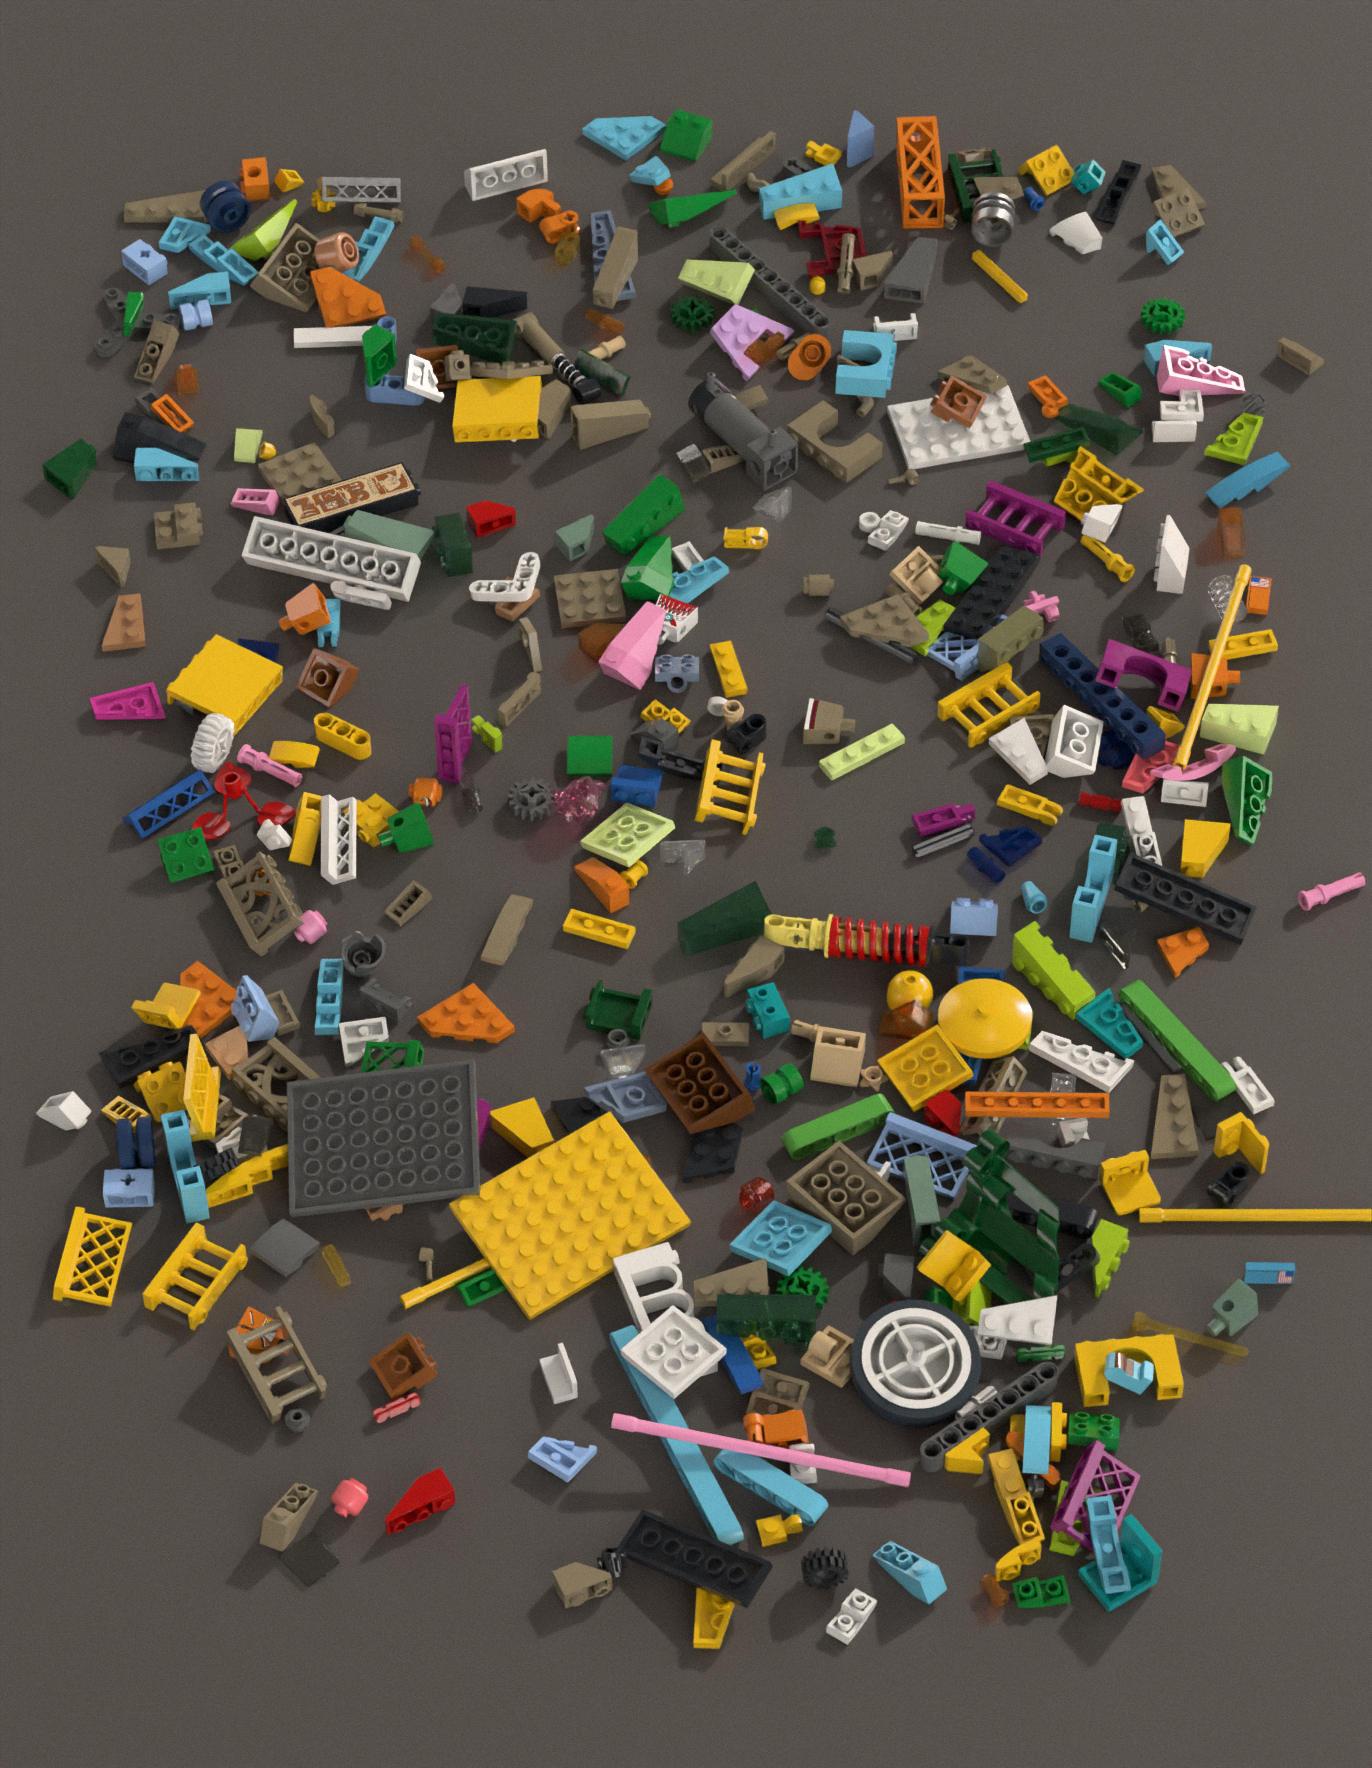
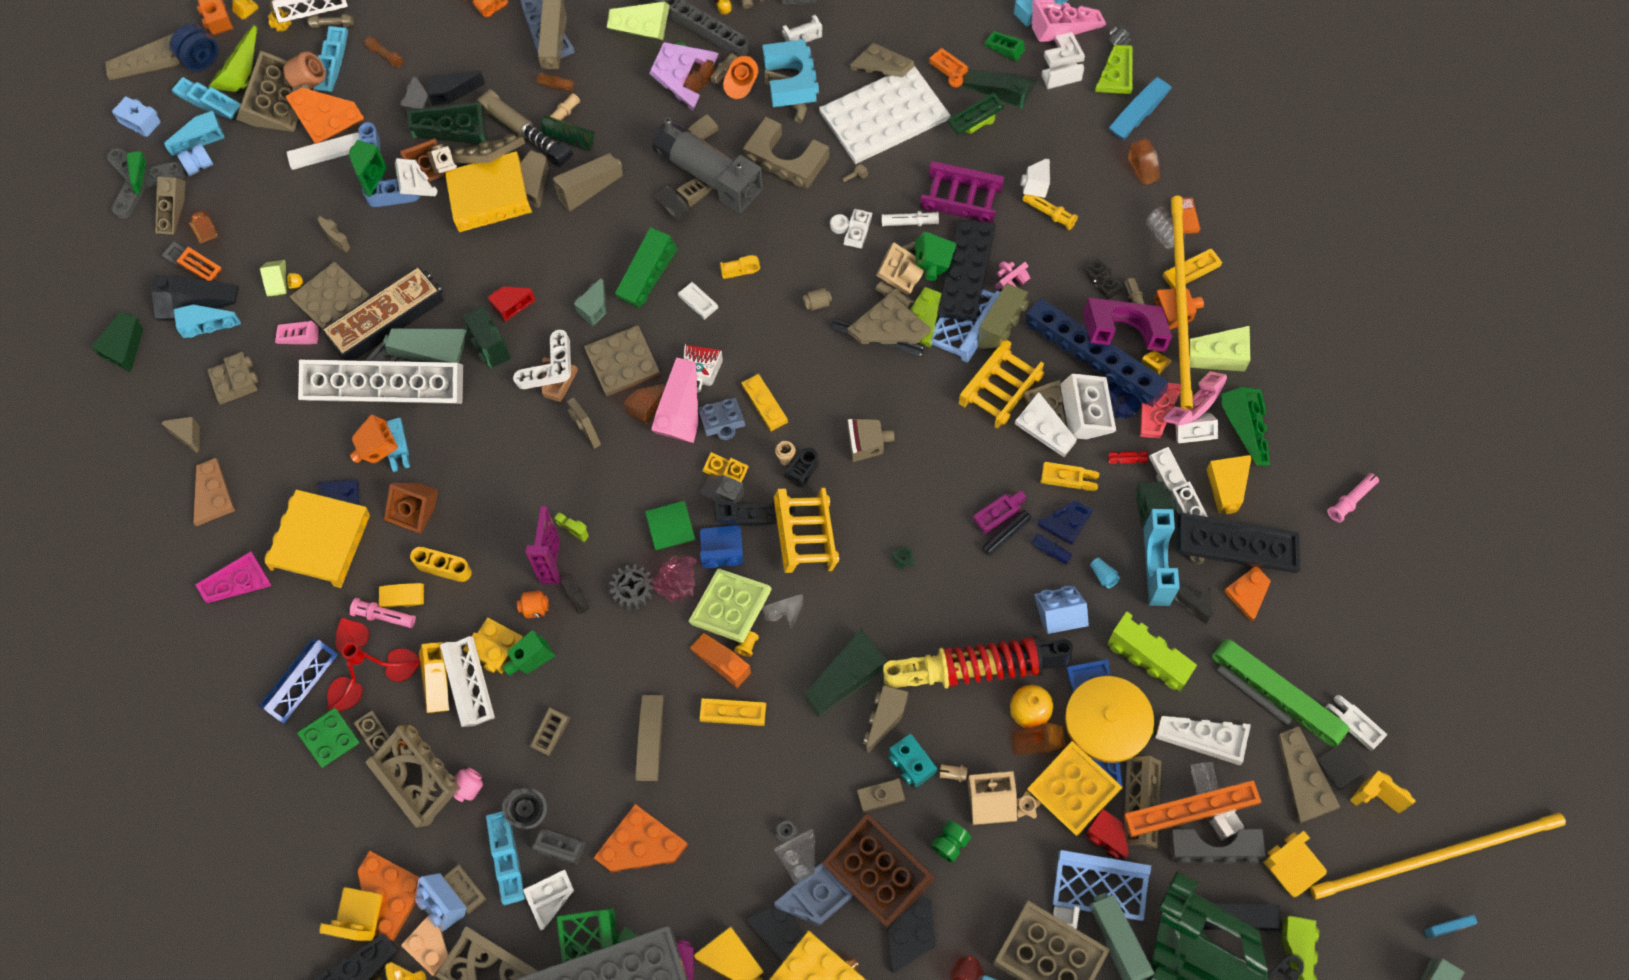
camera: 15 degrees left, 15 degrees up
(182, 233) = (163, 80): medium azure wing -> none
(212, 742) = (322, 607): white gear -> none
(273, 835) = (404, 692): white bracket -> none
(361, 595) = (417, 409): white hinge -> none
(520, 699) = (590, 484): dark tan plate -> none
(563, 247) = (506, 18): clear yellow beam -> none
(618, 1010) = (776, 798): dark green panel -> none
(650, 570) = (668, 320): green wedge -> none
(692, 313) = (636, 54): dark green gear -> none
(697, 579) = (706, 324): medium azure wing -> none
(715, 705) = (768, 444): white tile -> none
(752, 1077) = (918, 844): blue pin -> none
(775, 504) = (754, 226): clear slope -> none
(837, 1126) = (1015, 873): bright green beam -> none
(861, 751) = (906, 458): yellowish green plate -> none
(957, 402) = (880, 92): dark orange plate -> none
(1092, 485) = (1018, 147): yellow wedge -> none
(1108, 1022) = (1216, 691): teal wing -> none
(1172, 559) = (1108, 203): white slope -> none
(1228, 1186) = (1381, 842): black piece -> none

